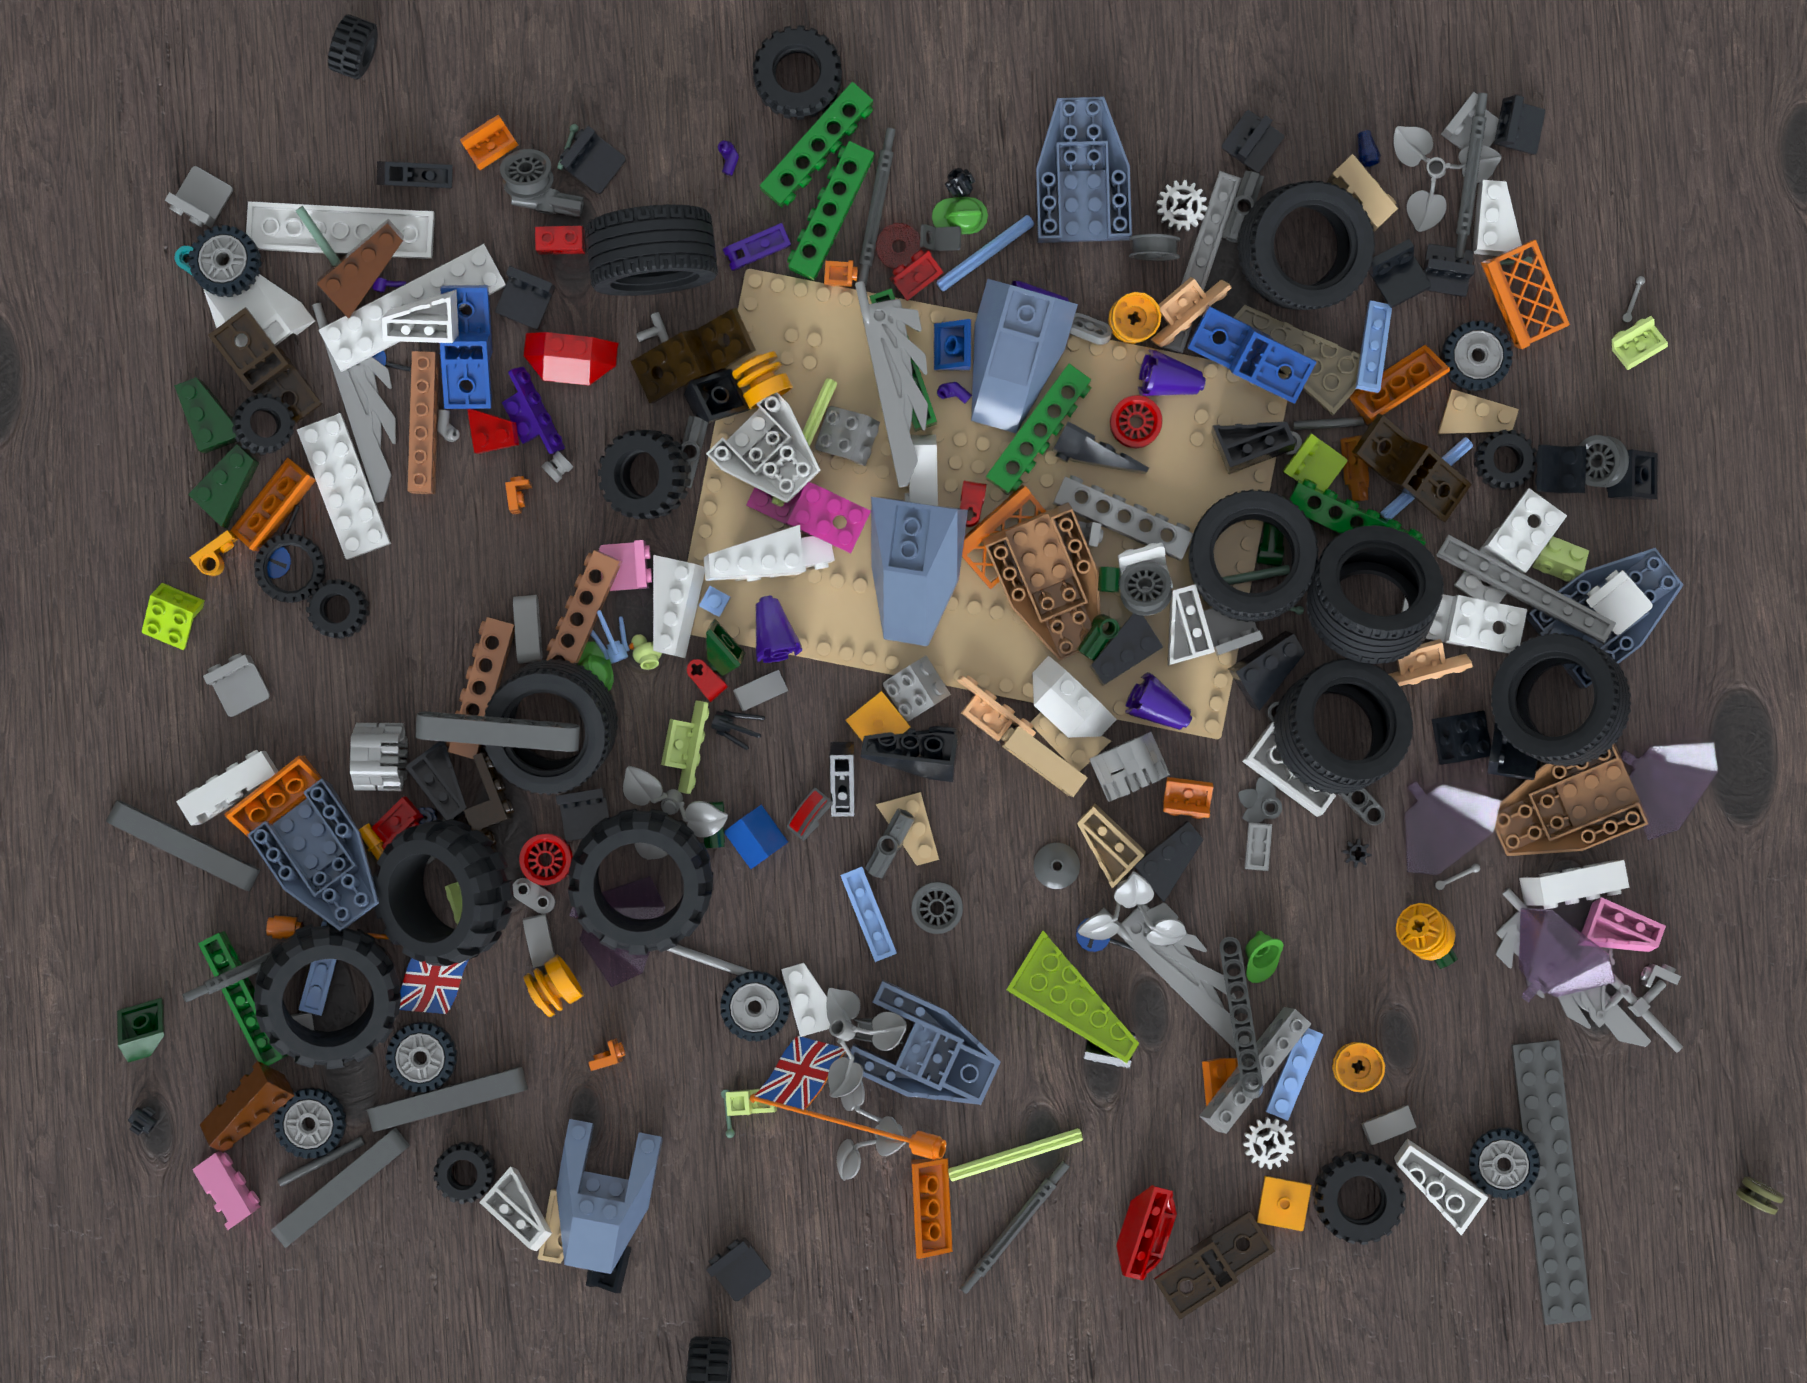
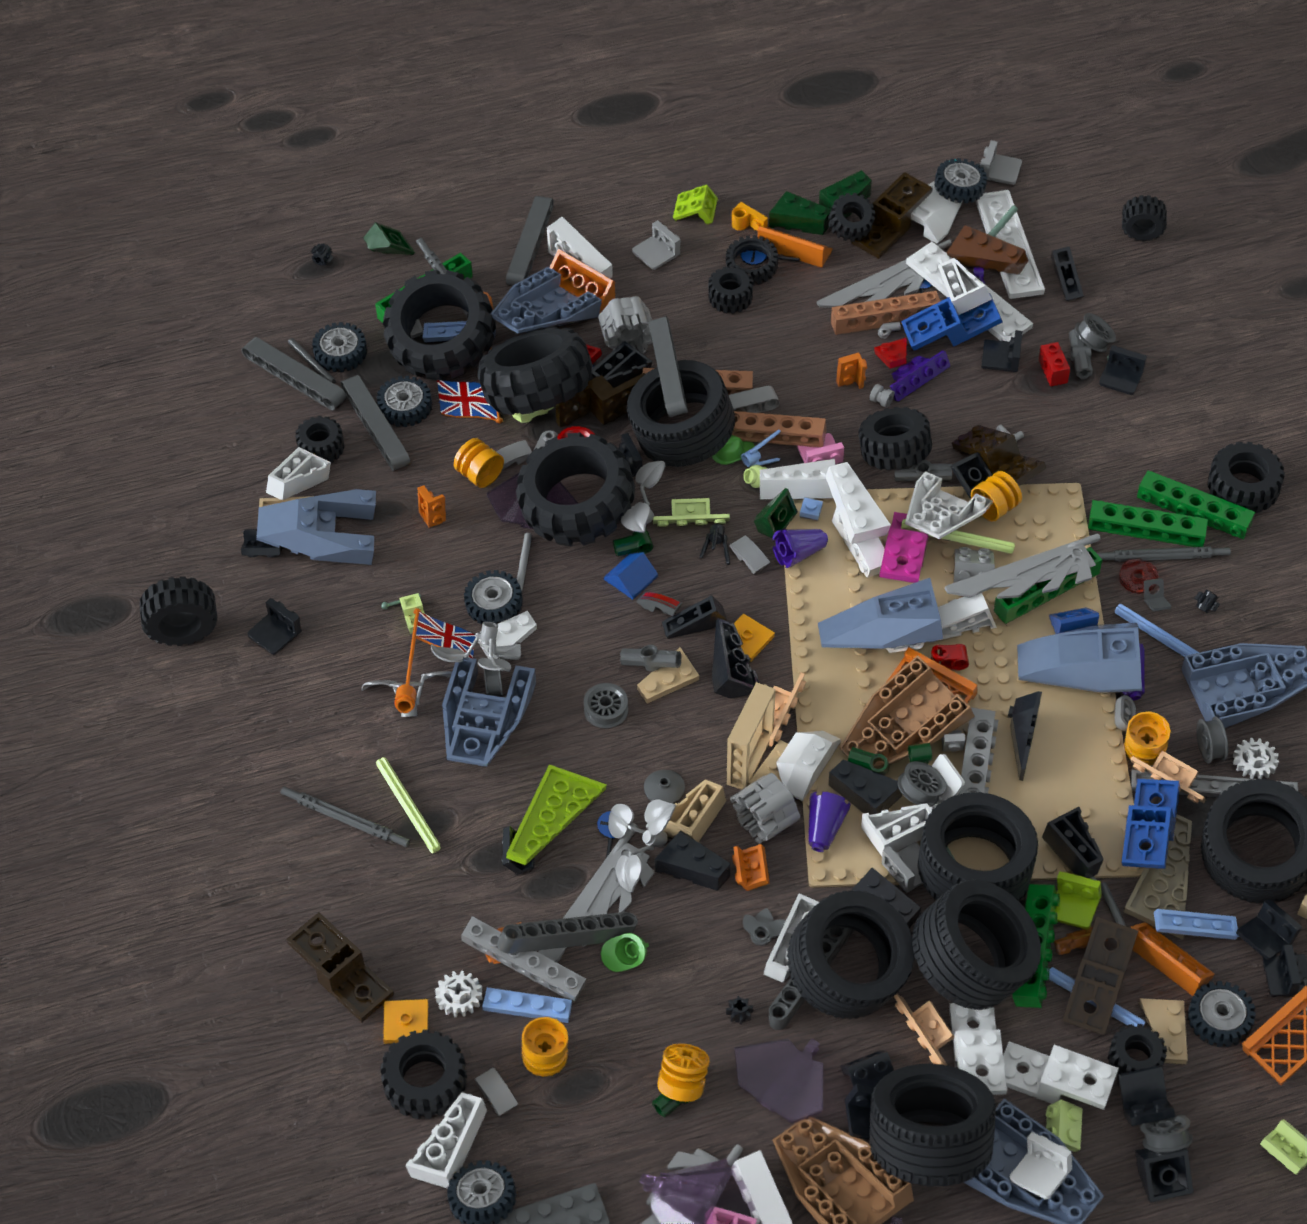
camera: 75 degrees right, 35 degrees down
(226, 1188) = (278, 308): bright pink wedge -> none
(246, 1107) = (348, 304): reddish brown wedge -> none
(343, 486) = (821, 281): white plate -> none
(489, 142) = (1110, 310): orange bracket -> none
(570, 357) = (969, 390): red wedge -> none
(651, 250) = (1069, 397): black tyre -> none
(708, 682) = (745, 516): red piece -> none
(730, 155) = (1162, 456): dark purple arm -> none
(757, 246) = (1099, 484): dark purple plate -> none
(840, 273) = (1106, 540): orange bracket -> none
(868, 914) = (587, 660): light blue plate -> none
(916, 274) = (1121, 586): red bracket -> none
(916, 688) = (786, 652): light grey bracket -> none
(931, 1207) = (350, 747): orange slope -> none
(953, 389) = (1036, 627): dark purple arm -> none
(961, 212) = (1183, 613): bright green piece -> none
(1069, 378) = (1061, 700): green brick -> none
(1132, 401) = (1060, 770): red wheel -> none
(1146, 1232) = (360, 912): red wedge -> none
(1168, 376) = (1107, 769): dark purple cone -> none
(1258, 846) = (723, 931): light grey plate -> none
(1441, 884) = (729, 1090): light grey hinge -> none
(1526, 589) = (1024, 1091): light grey tile -> none

